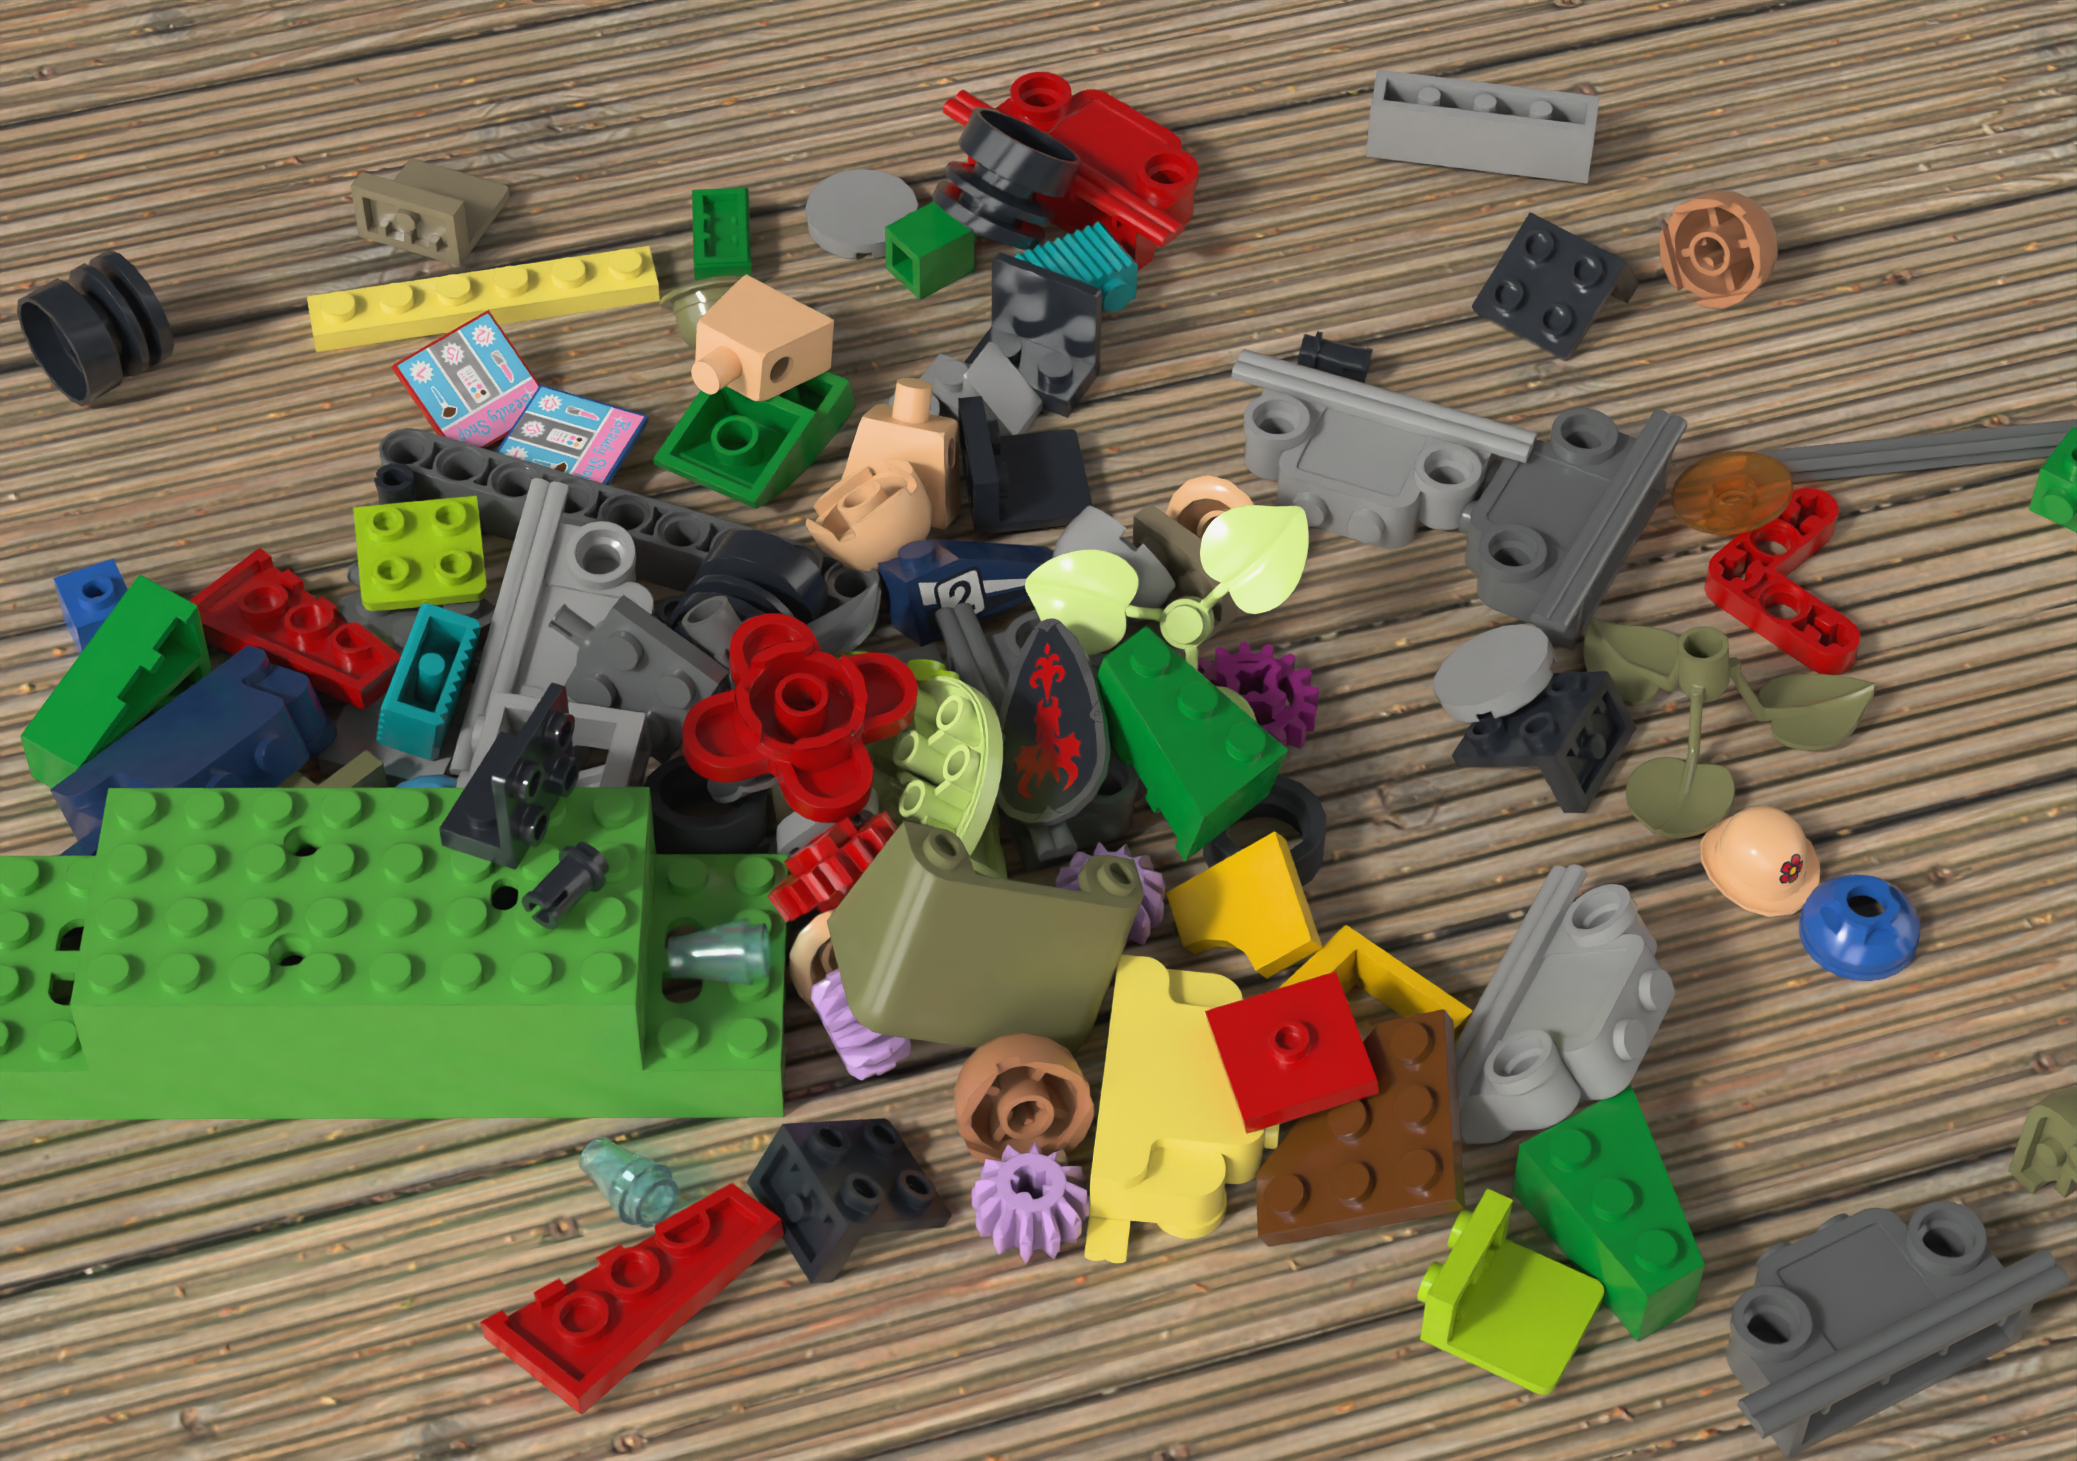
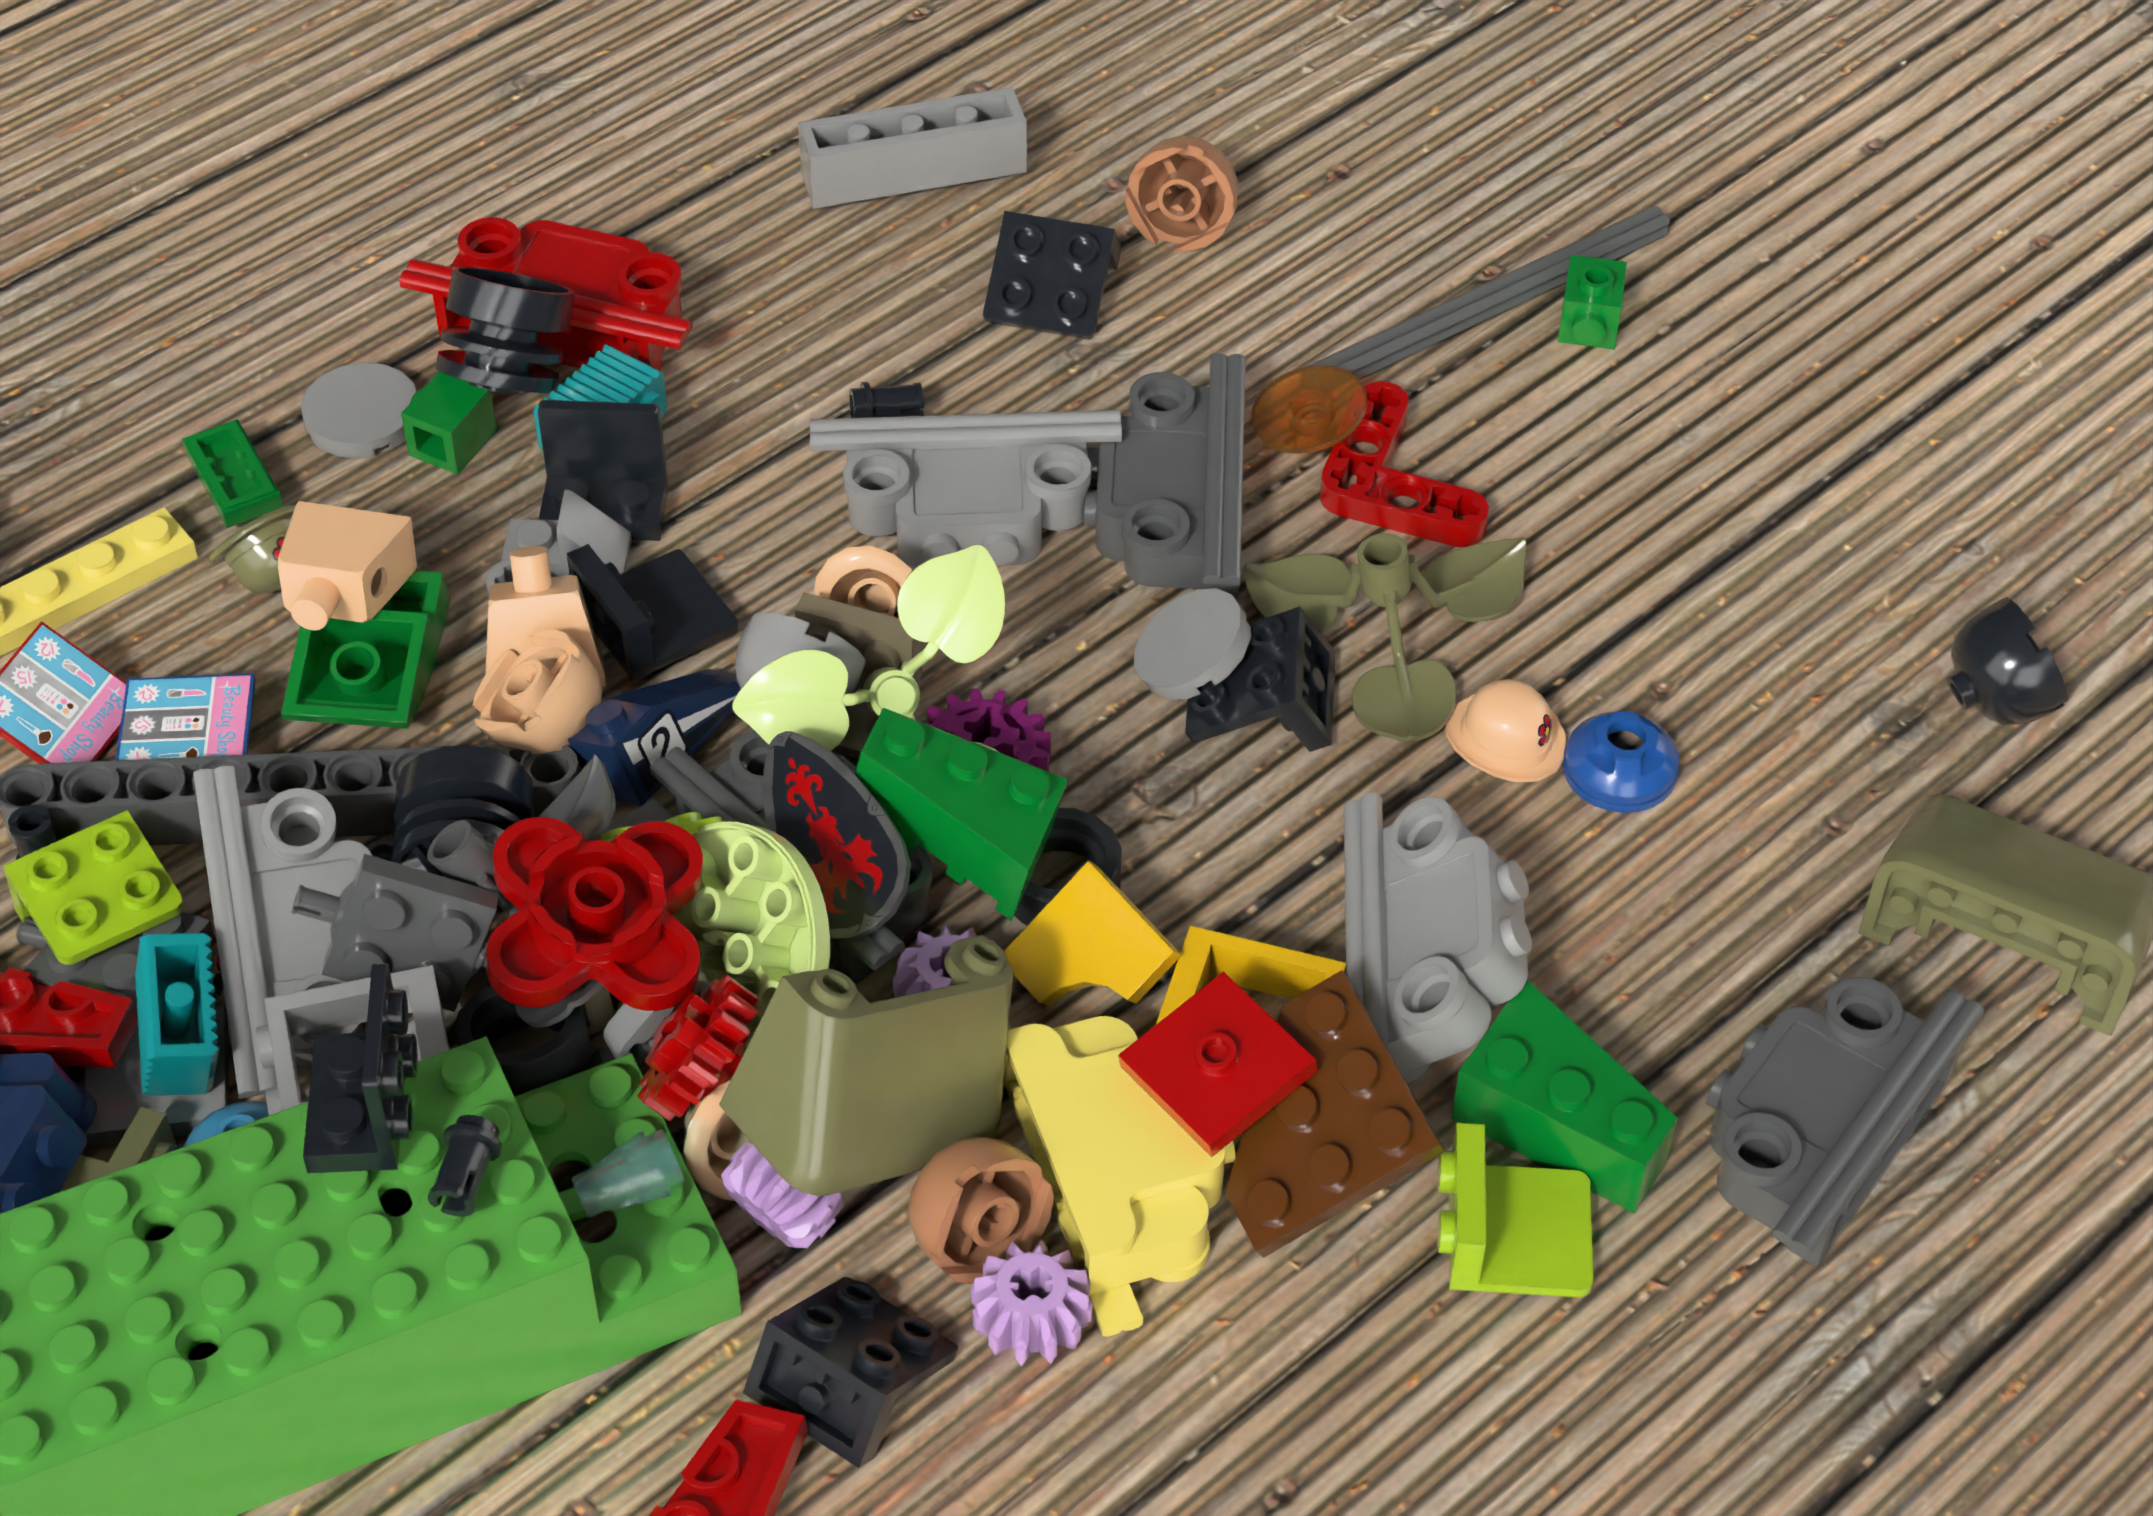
camera: 25 degrees left, 0 degrees up
(632, 1184) = (631, 1439): clear light blue cone -> none

